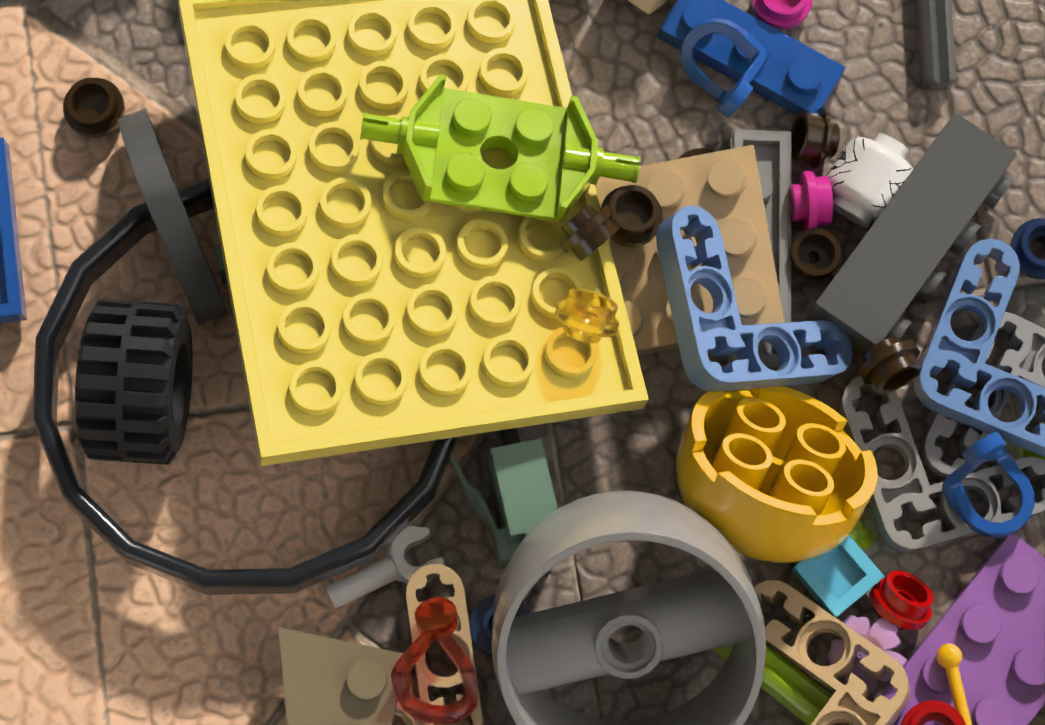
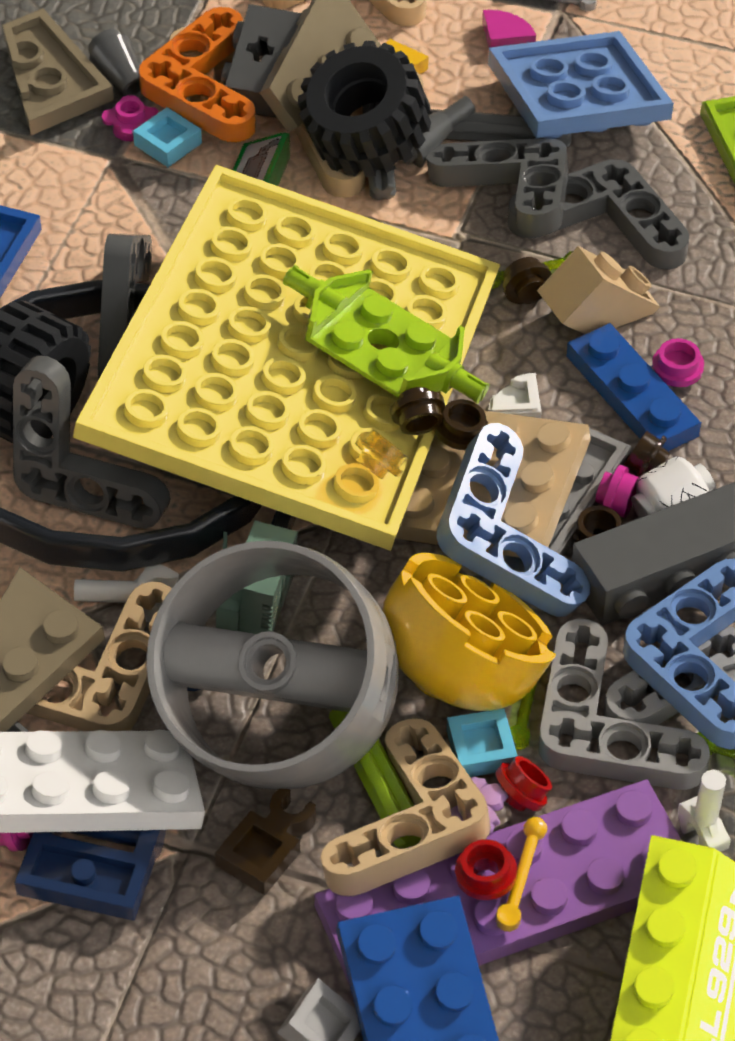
camera: 30 degrees right, 25 degrees down
(93, 107) = (114, 220): dark brown plate -> none
(220, 473) = (43, 461): none -> dark grey beam
(435, 621) = (134, 612): clear red piece -> none
(644, 126) = (518, 397): none -> white tile
(747, 43) = (594, 388): blue piece -> none
(890, 364) = (609, 608): dark brown plate -> none
(989, 449) = (642, 682): blue piece -> none

